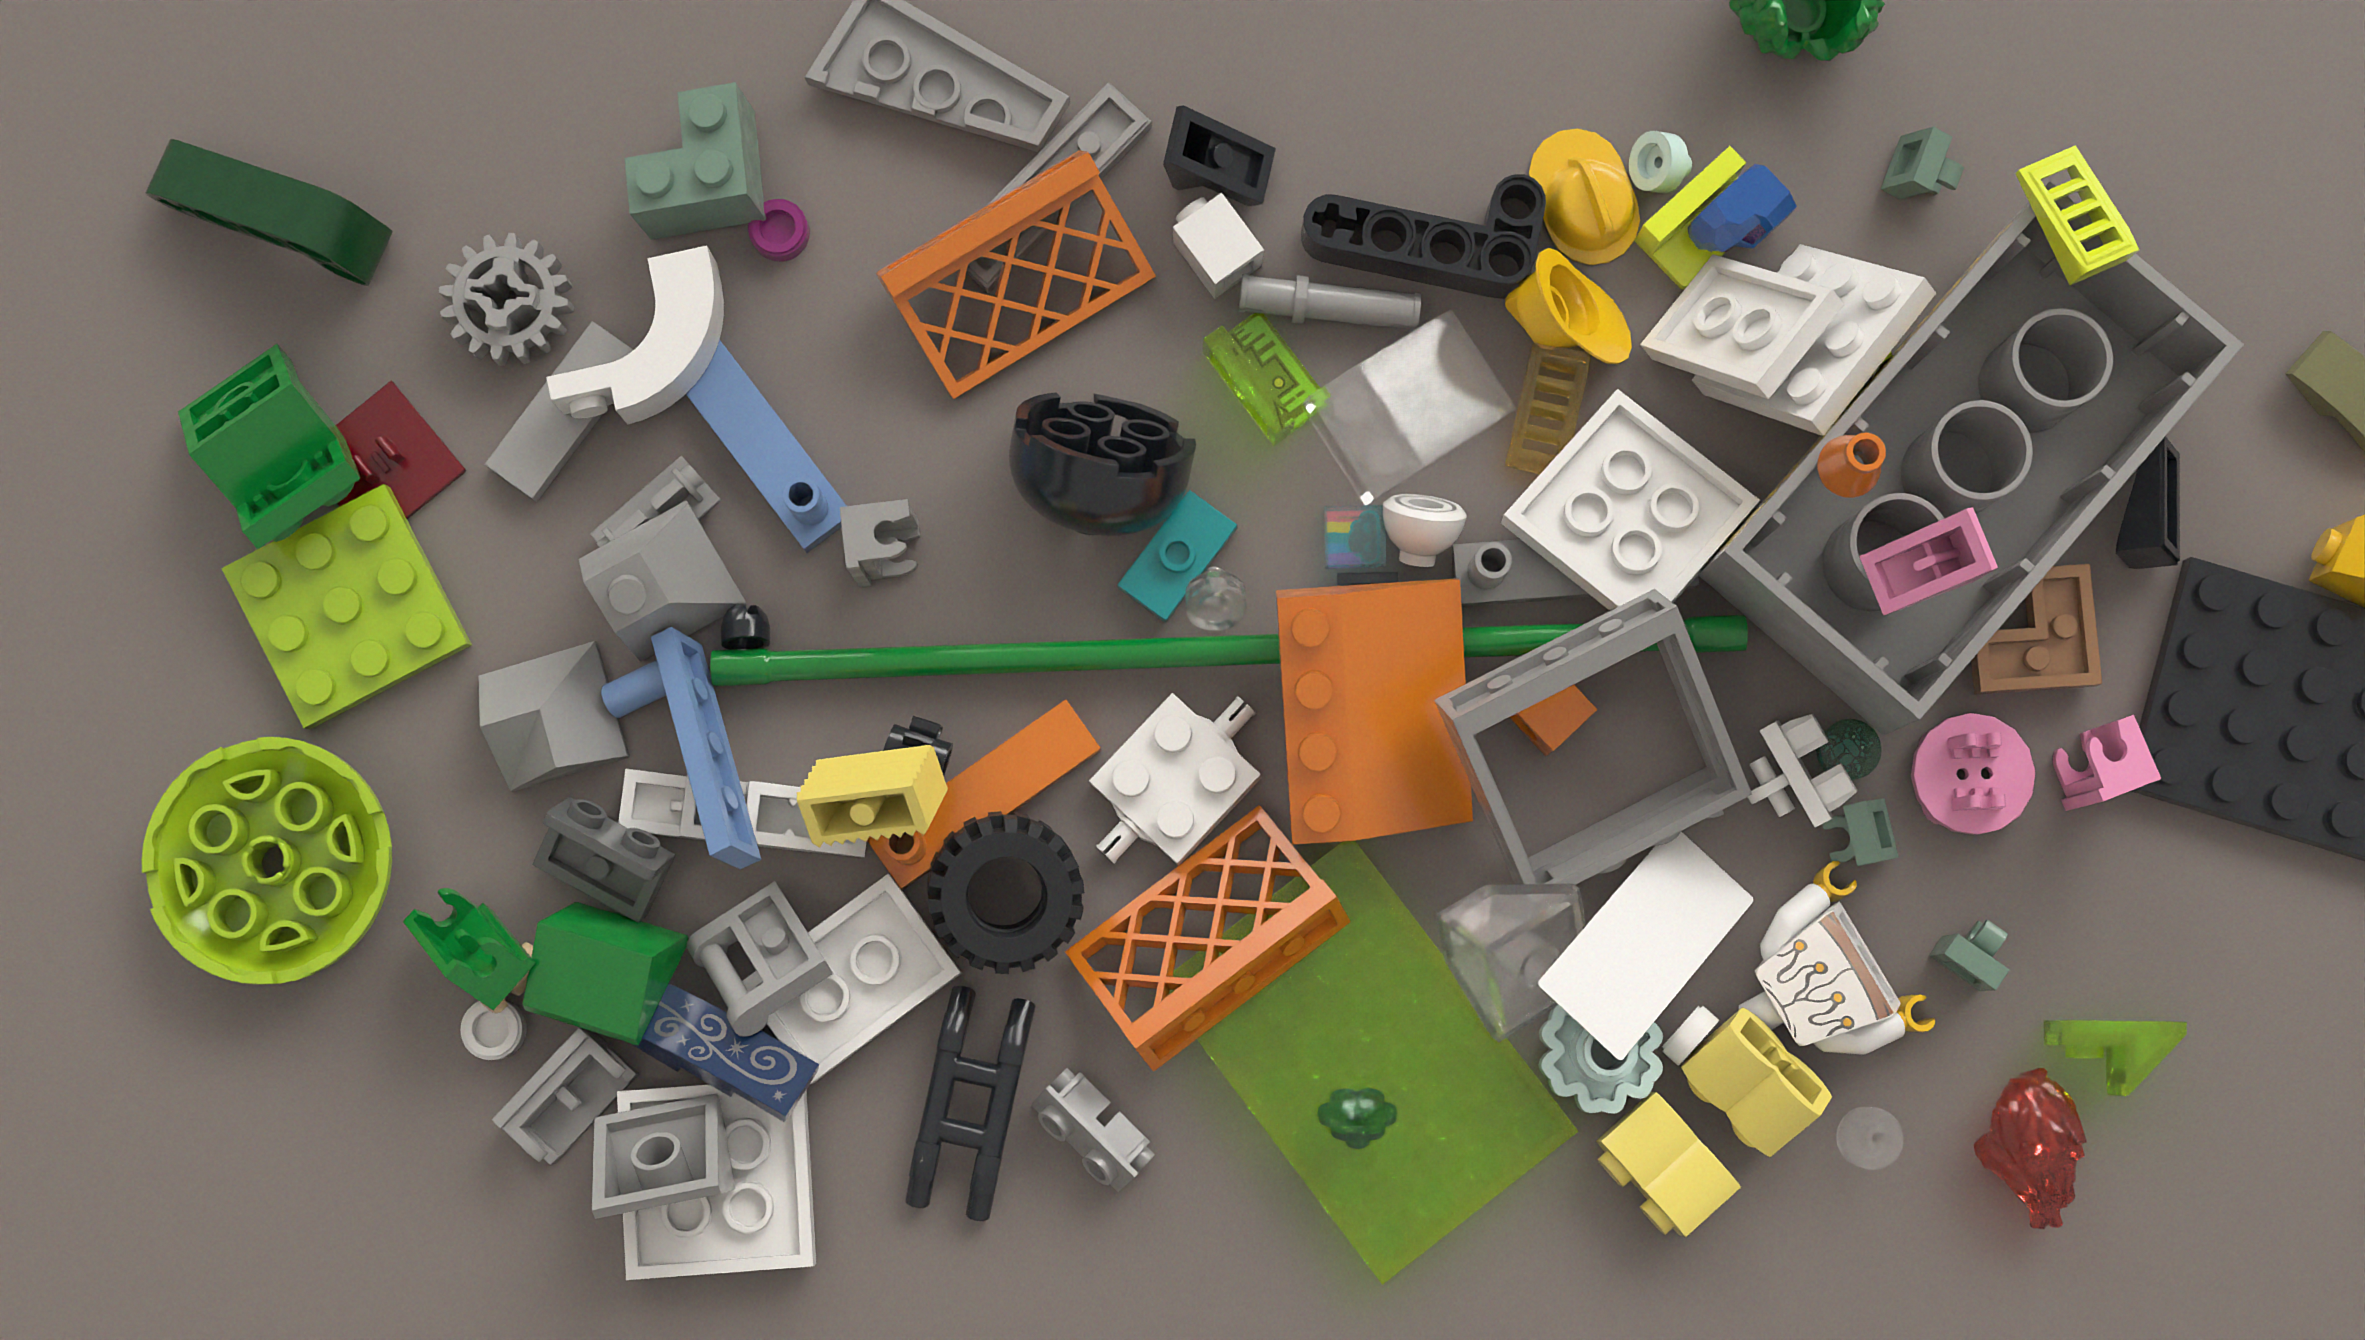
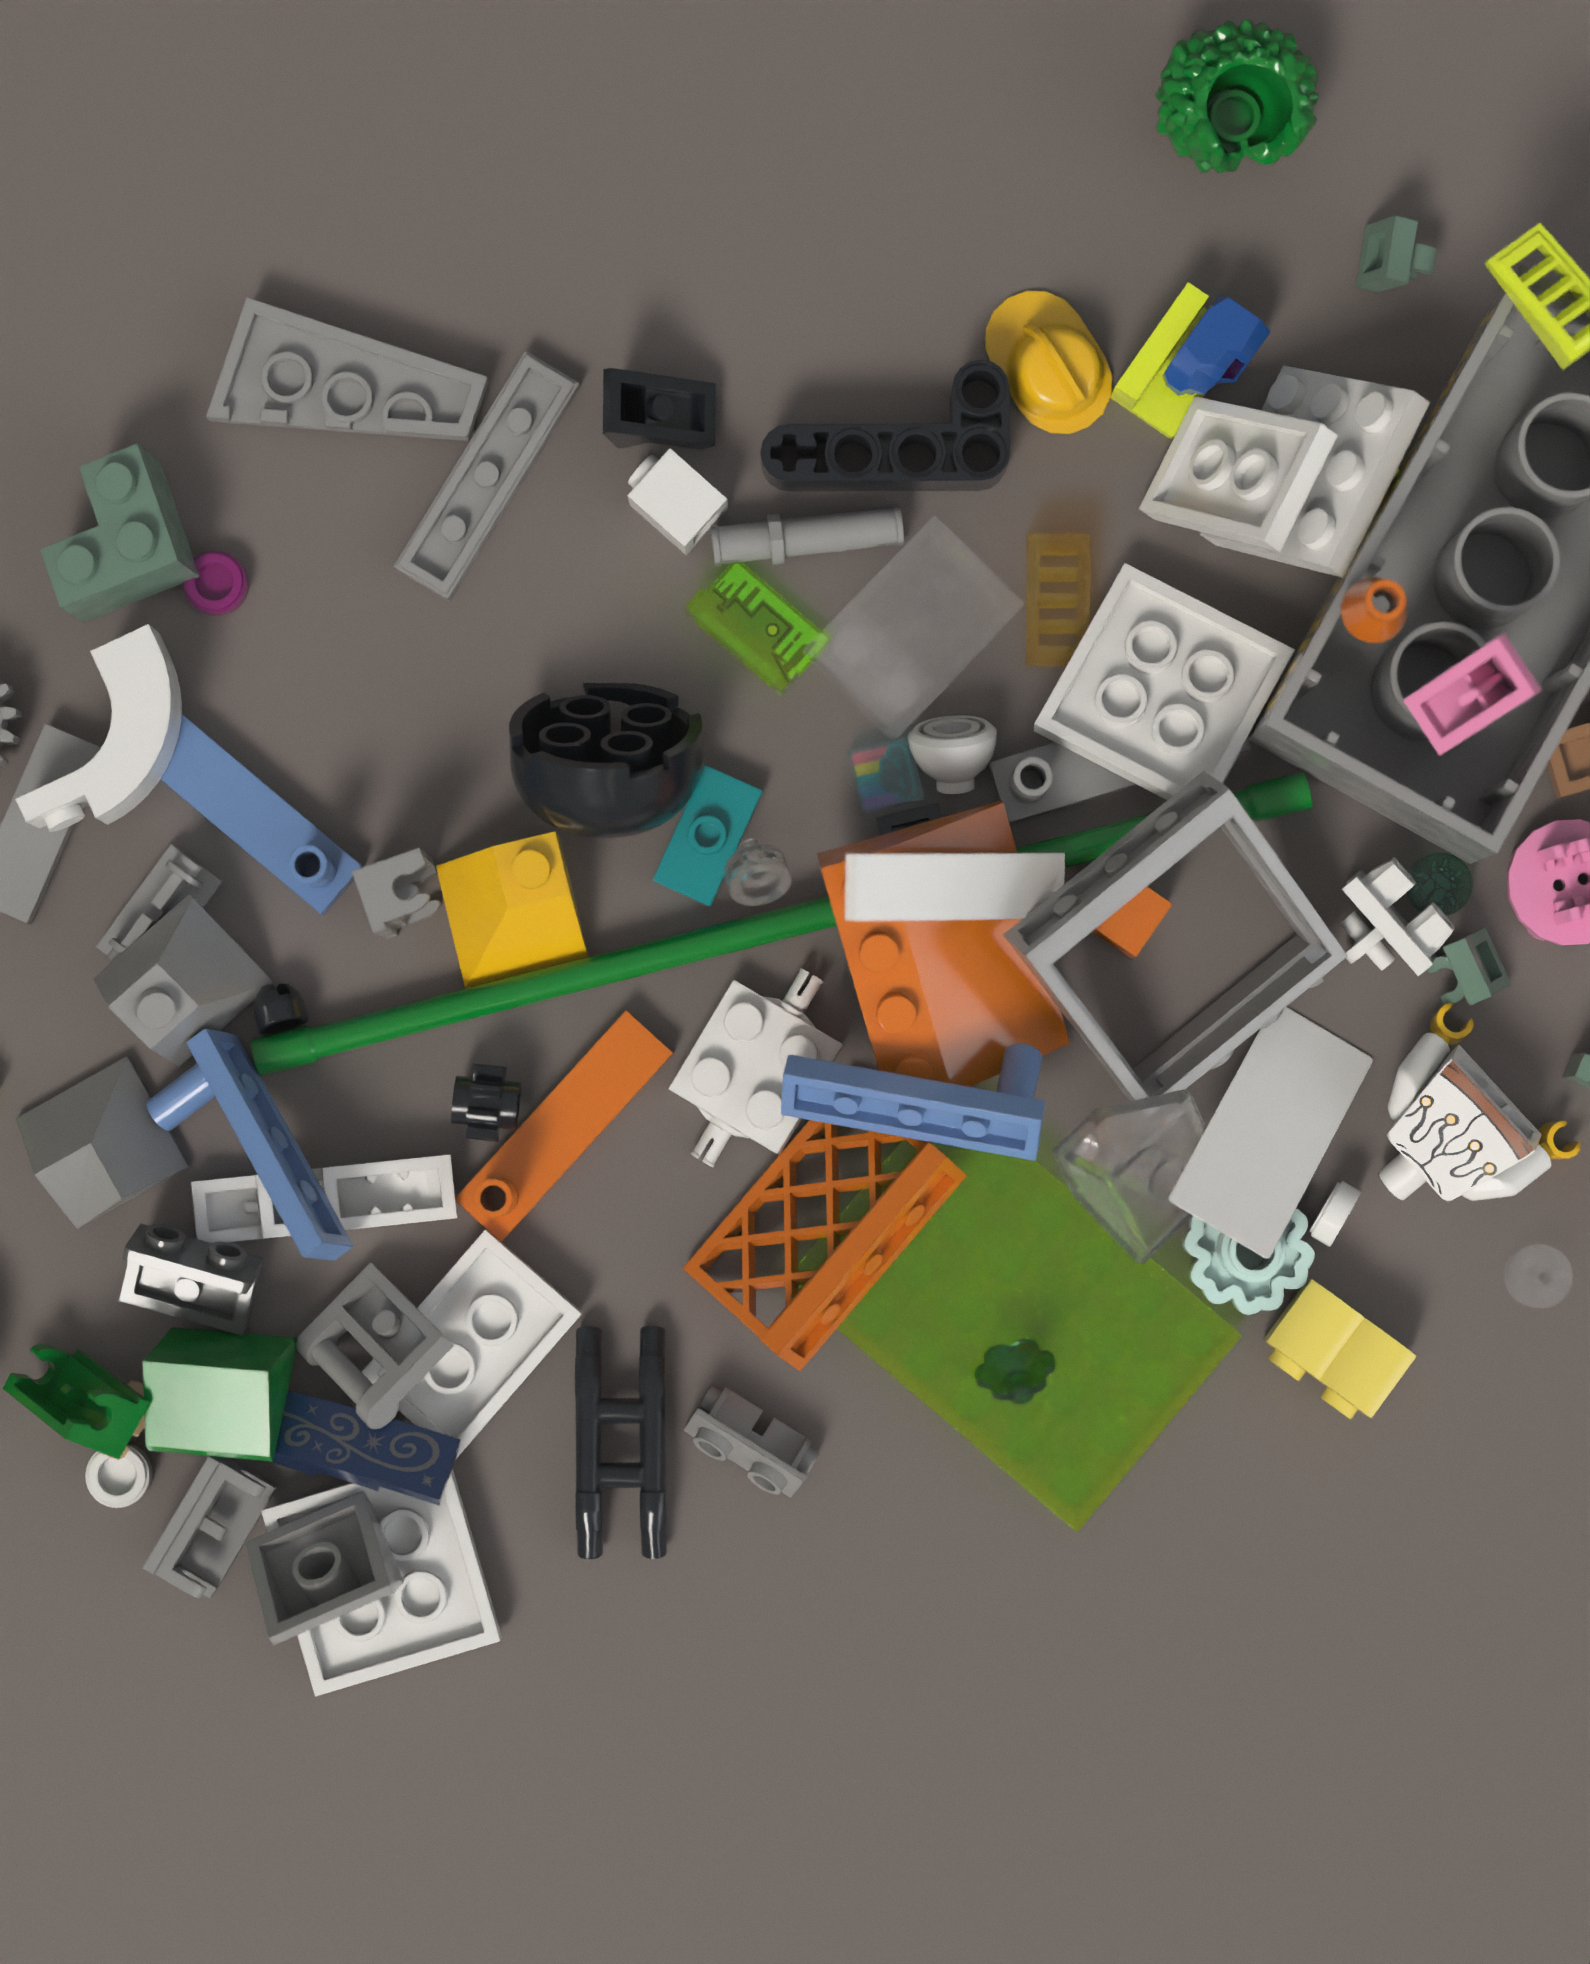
camera: 10 degrees left, 5 degrees up
(872, 795) = (452, 1158): light yellow brick -> none
(981, 581) = (512, 909): none -> yellow slope
(990, 228) = (436, 538): orange fence -> none
(1017, 943) = (619, 1275): black tyre -> none
(1323, 846) = (921, 1108): none -> medium blue piece
(1393, 639) = (949, 885): none -> white slope
(1569, 310) = (1059, 490): yellow piece -> none
(1659, 162) = (1118, 311): light aqua tile -> none
(1755, 1082) = (1411, 1247): light yellow brick -> none

